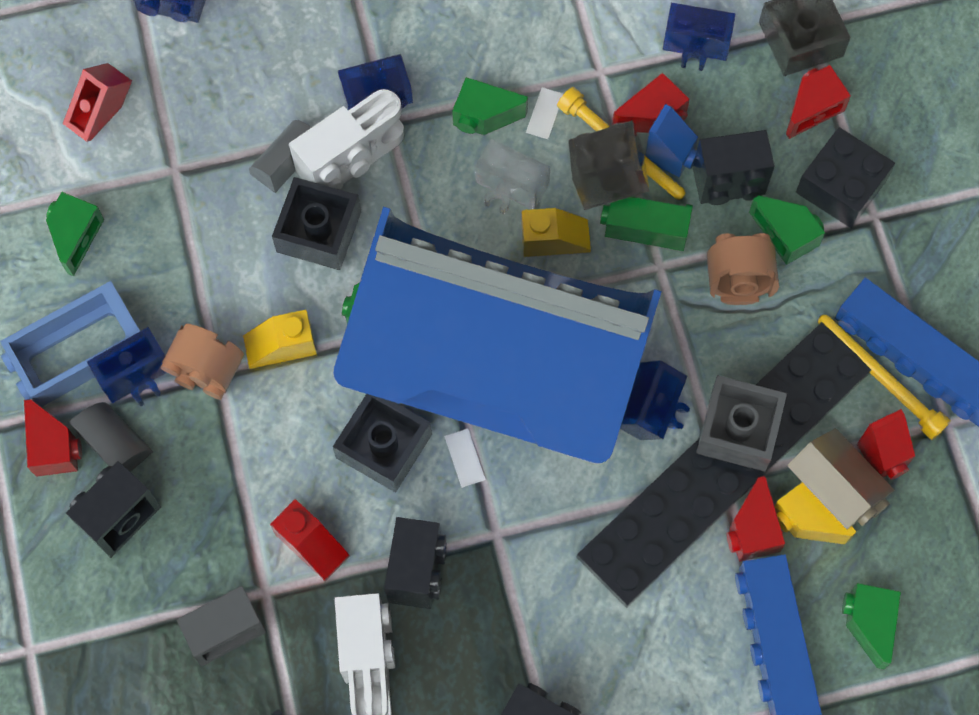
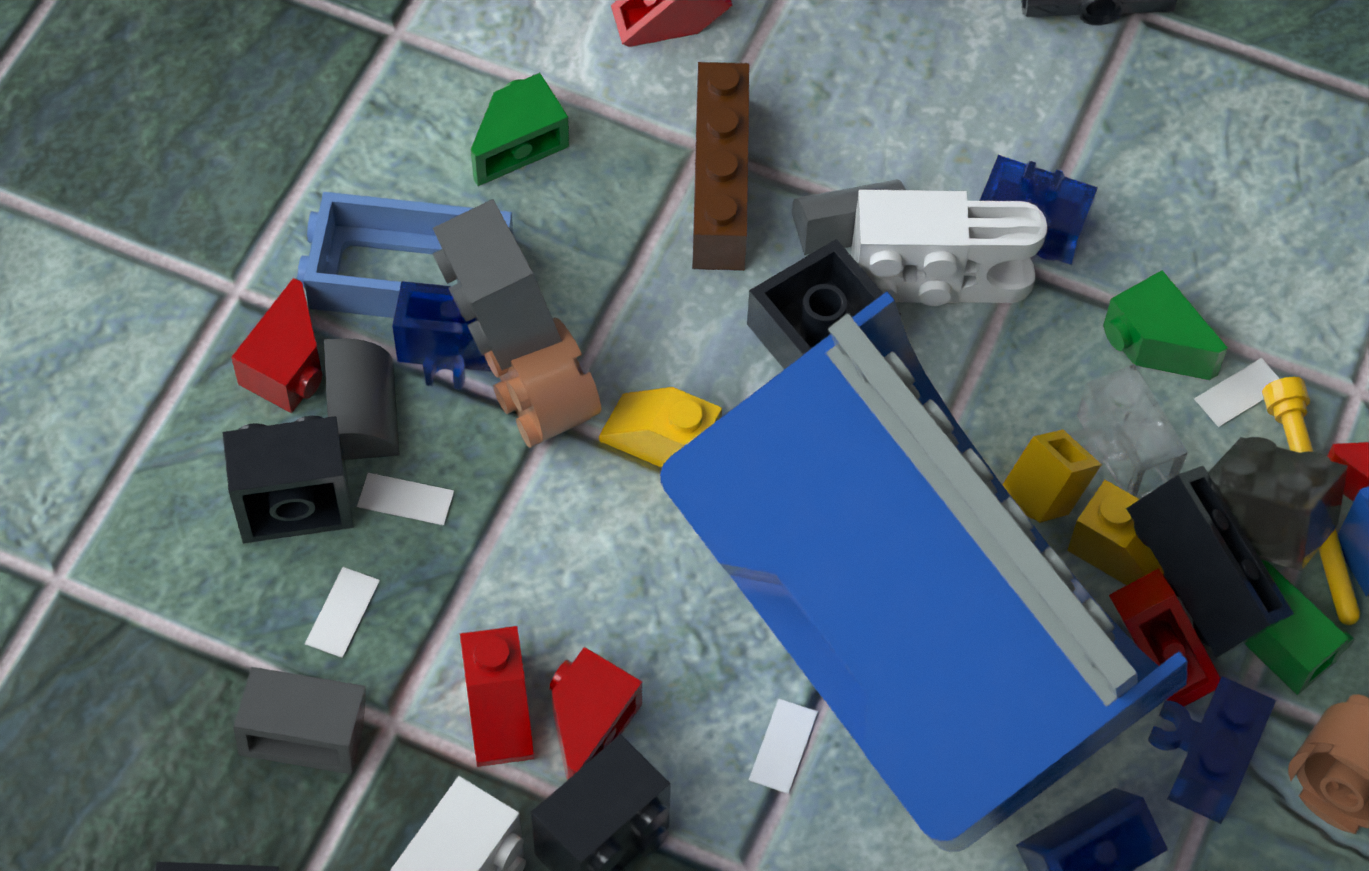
camera: 35 degrees right, 10 degrees down
(147, 332) = (494, 285): none -> dark grey brick
(175, 472) = (405, 498): none -> white sticker
(192, 555) = (342, 612): none -> white sticker
(197, 175) = (721, 166): none -> reddish brown brick
(360, 513) = (591, 706): none -> red slope
(382, 441) = (690, 639): black brick -> none
(492, 226) = (1051, 476): none -> yellow brick
(604, 218) = (1209, 561): none -> black brick
(605, 267) = (1162, 629): none -> red slope
(675, 310) = (1215, 748): none -> clear blue brick

